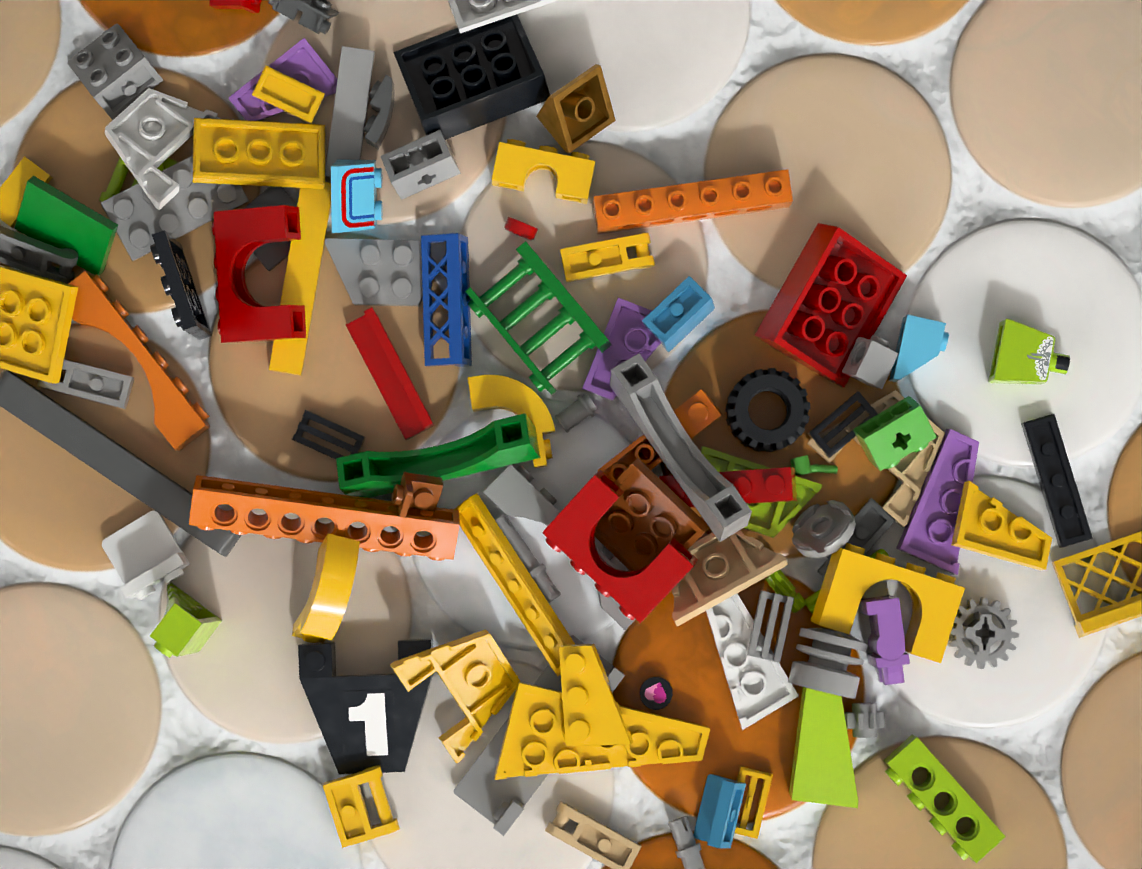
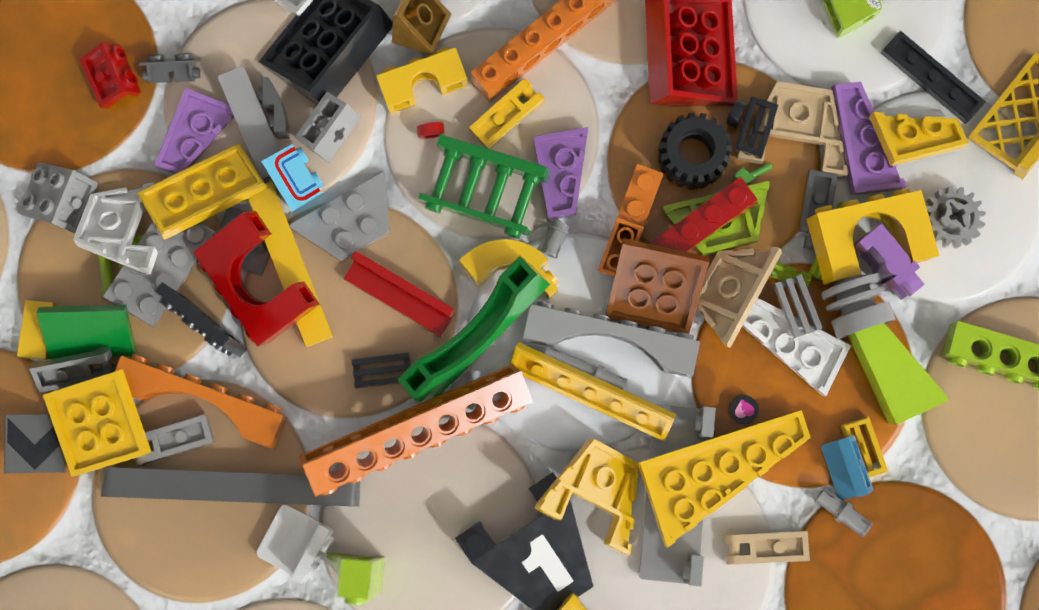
camera: 25 degrees left, 5 degrees down
(288, 94) = (198, 135): yellow tile -> none
(329, 591) = (454, 481): yellow arch -> none
(417, 492) = (474, 367): dark orange bracket -> none
(458, 310) = (415, 207): blue fence -> none
(588, 702) = (702, 445): yellow wing -> none
(634, 590) = (685, 338): red arch -> none
(679, 313) = (585, 120): dark azure panel -> none
(703, 484) = (696, 230): light grey arch -> none
(823, 529) = (791, 211): light grey tile -> none
(834, 398) = (737, 114): none -> black tile
(864, 720) = (911, 332): light grey gear -> none
(870, 361) = (746, 71): light grey brick -> none
(905, 421) = (799, 109): bright green brick -> none
(917, 344) = (770, 40): medium azure slope -> none

